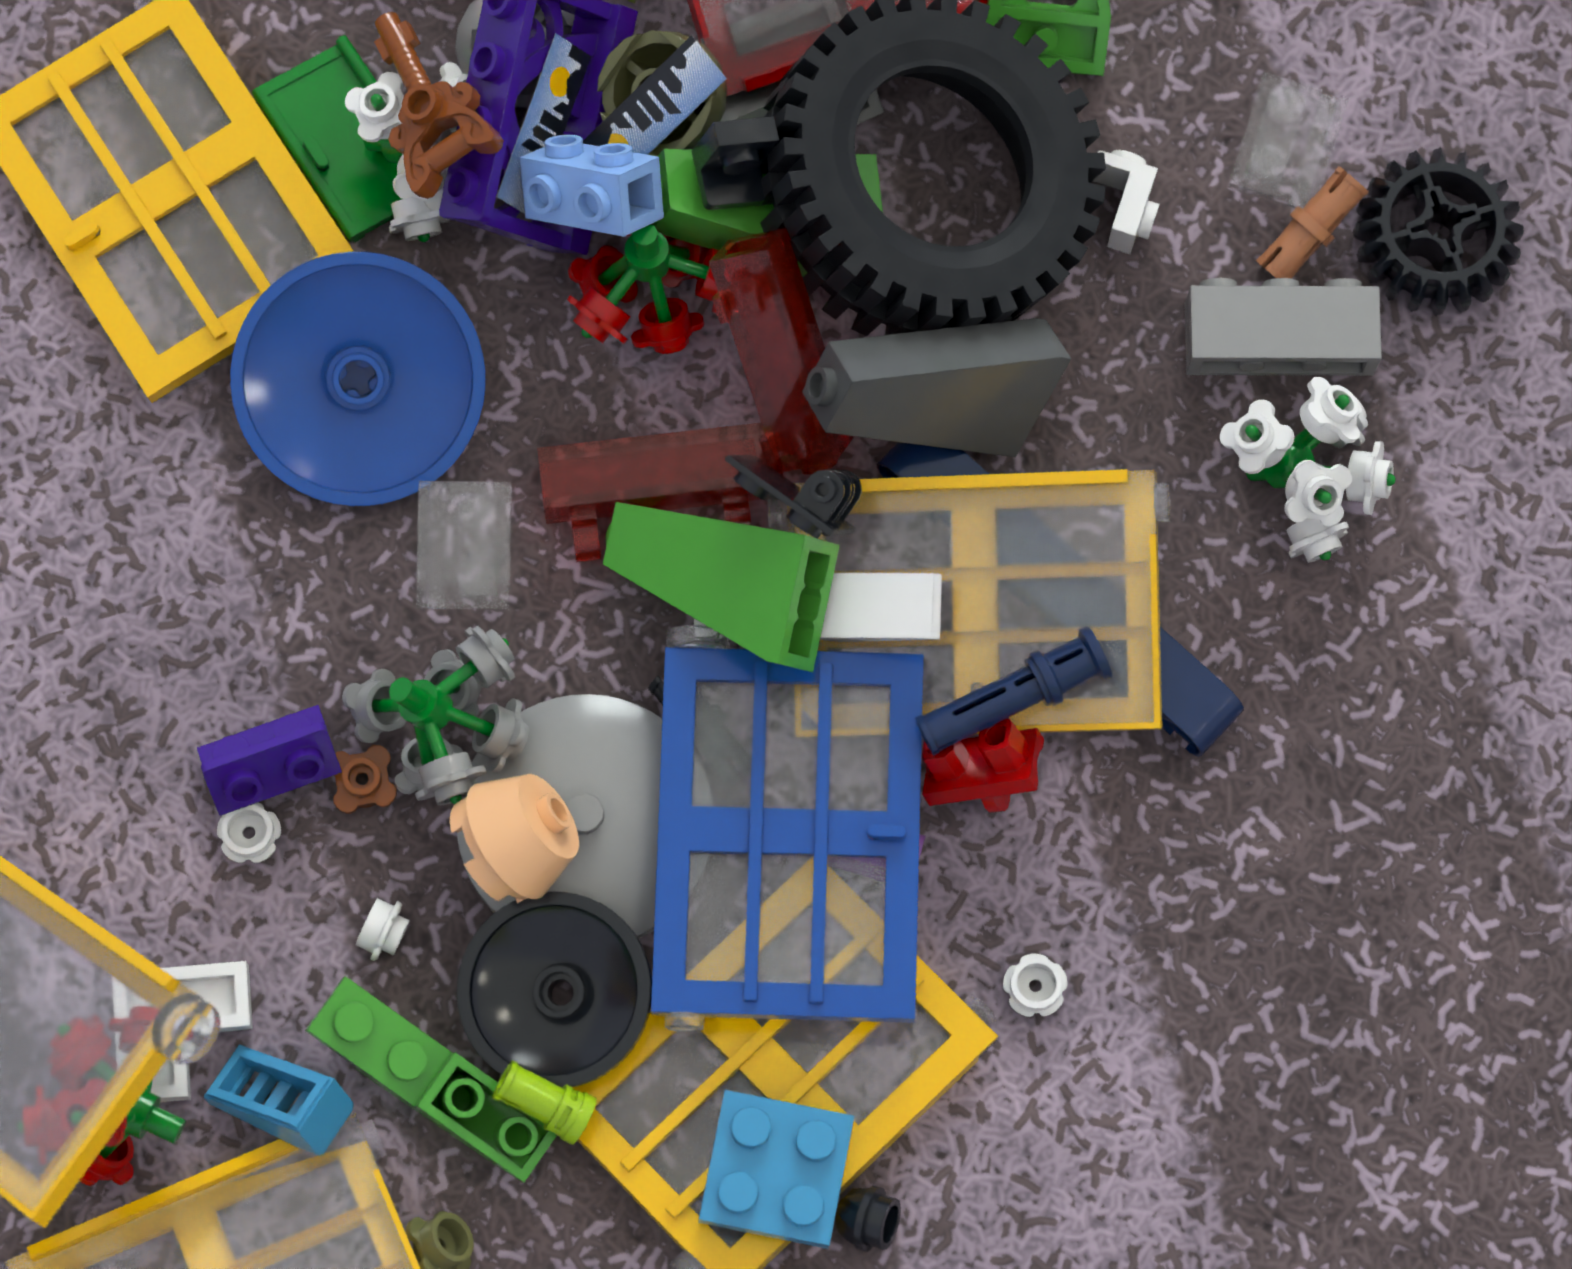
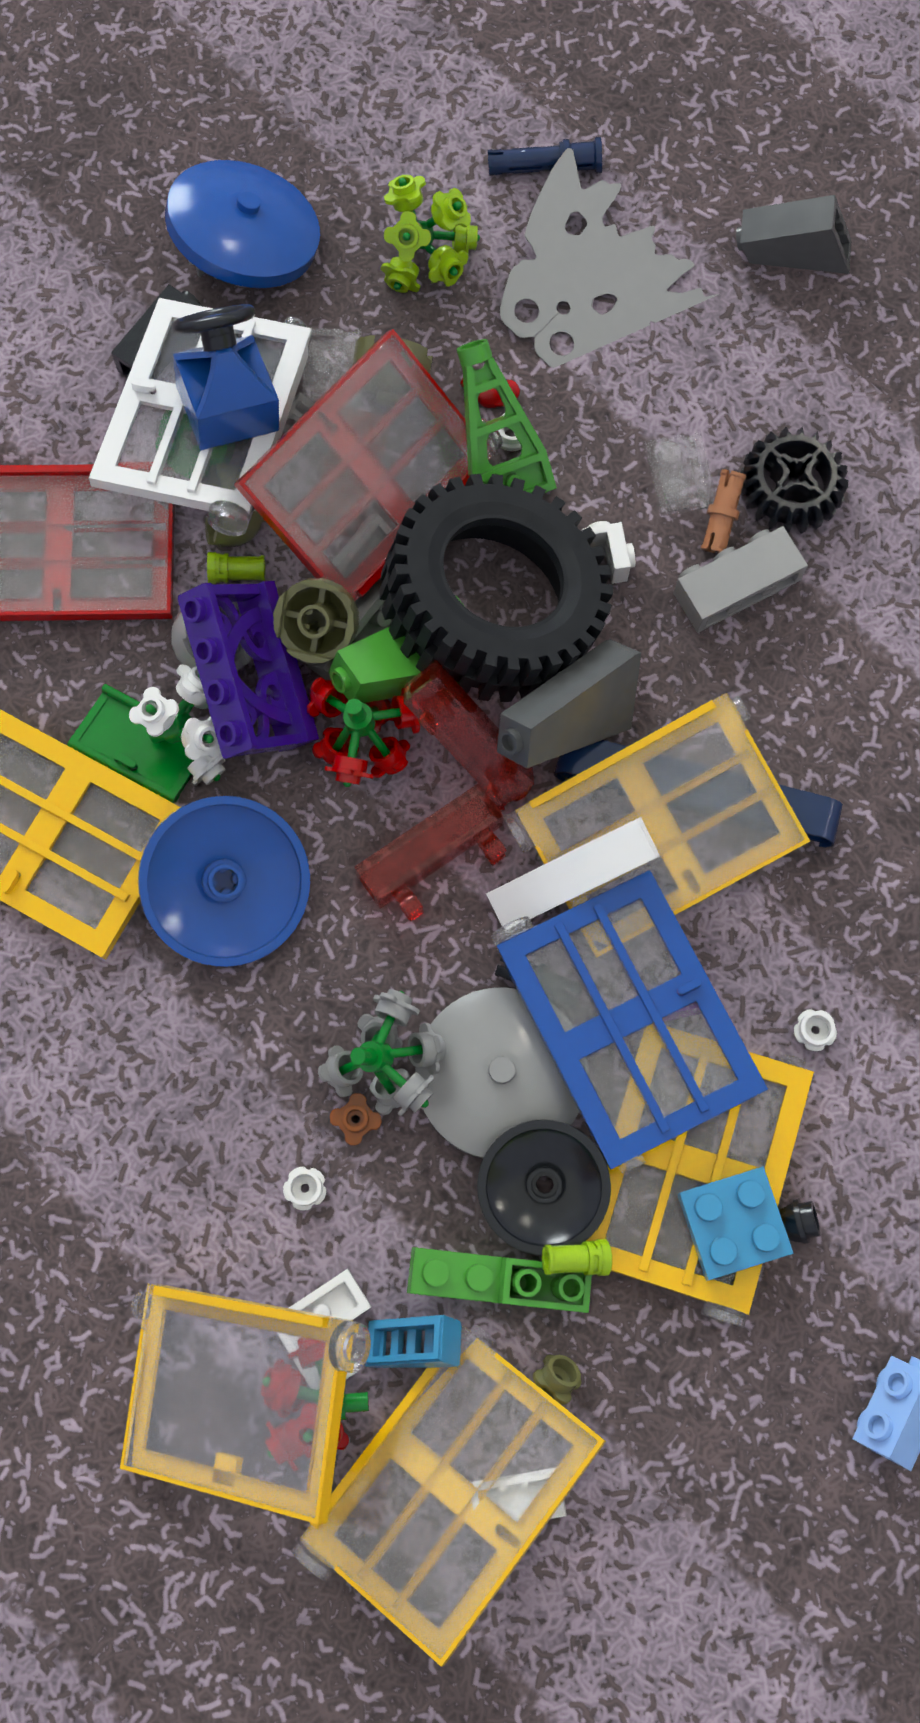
camera: 25 degrees left, 0 degrees up
(268, 760) = (294, 1138): dark purple bracket -> none
(382, 929) = (417, 1203): white plate -> none
(430, 111) = (187, 698): dark orange piece -> none
(464, 545) = (340, 947): clear plate -> none
(517, 836) = (475, 1106): light nougat cone -> none
(547, 111) = (256, 672): sticker -> none
(591, 186) = (306, 694): light blue brick -> none
(661, 100) = (316, 636): sticker -> none
(730, 162) = (382, 638): black bracket -> none
(736, 578) = (517, 883): bright green slope -> none
(816, 507) = (545, 819): black hinge -> none
(984, 767) = (718, 917): red hips -> none
(1042, 678) = (729, 849): dark blue pin -> none
(1311, 489) = (819, 658): white plant -> none

